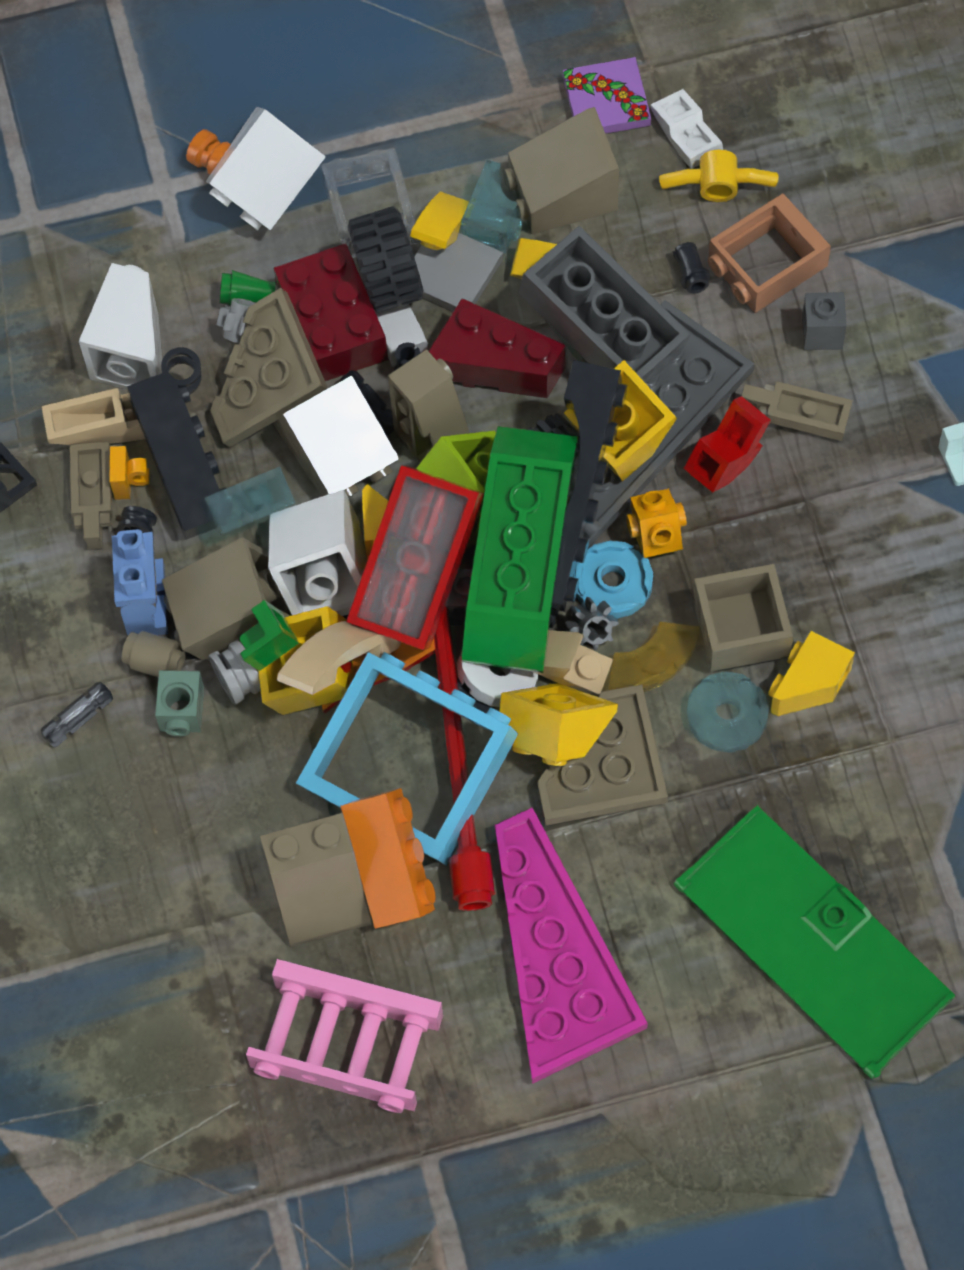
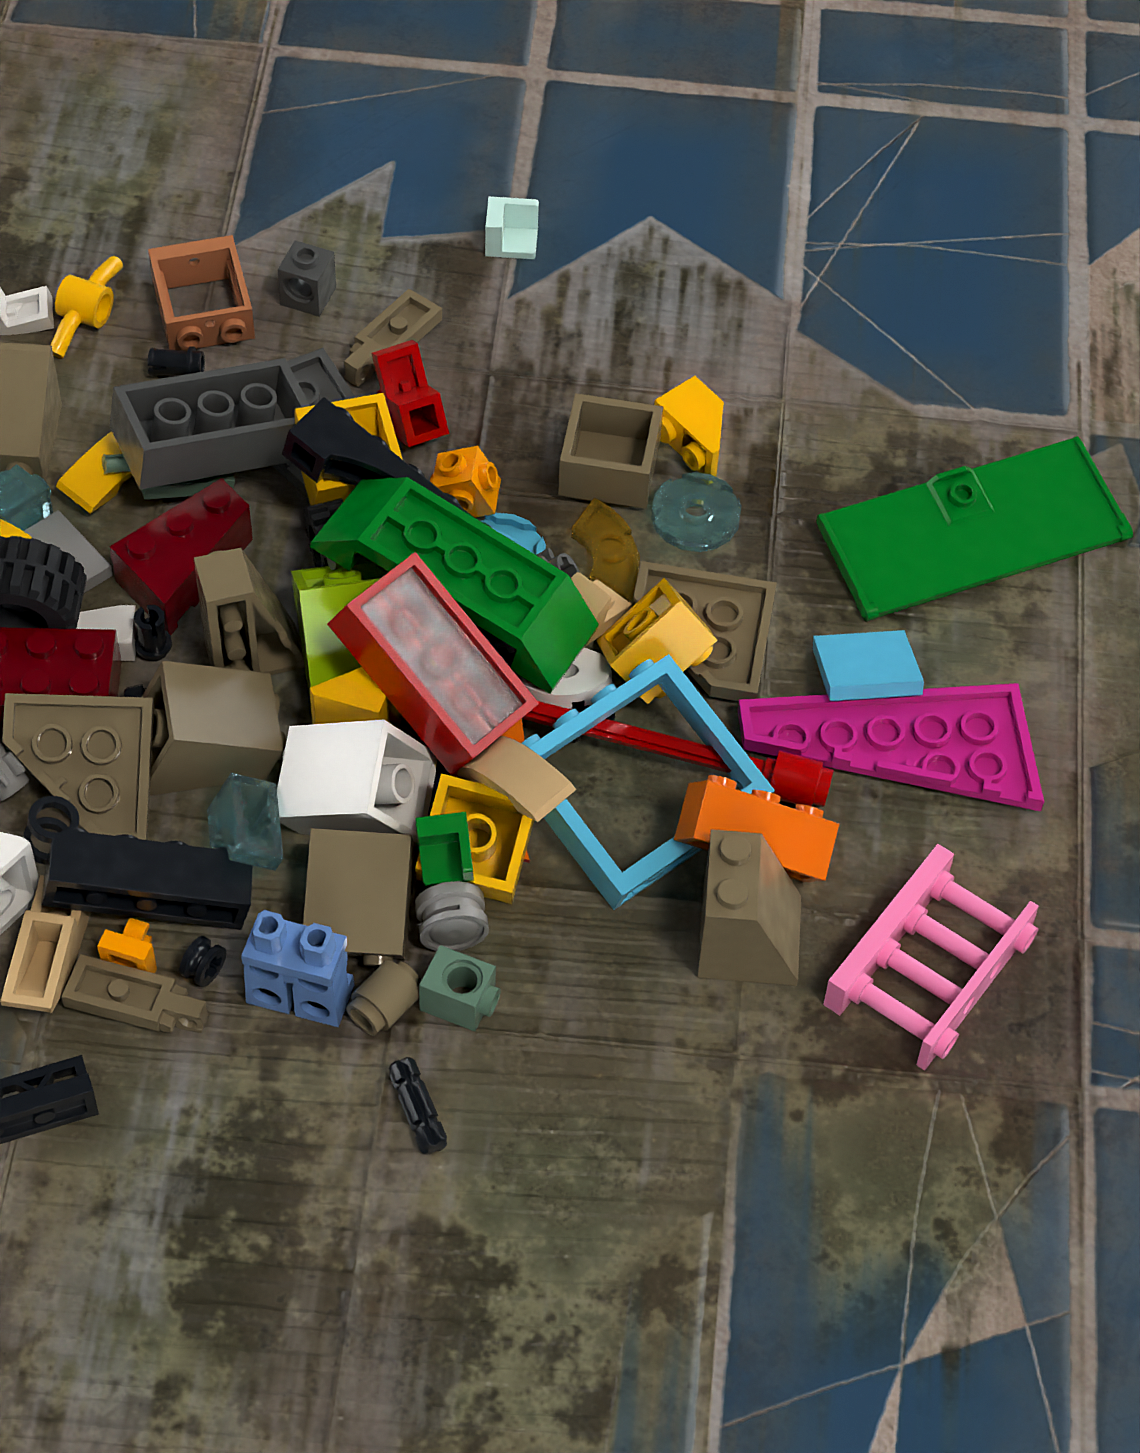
camera: 75 degrees left, 10 degrees down
(613, 896) = (867, 665): none -> medium azure tile

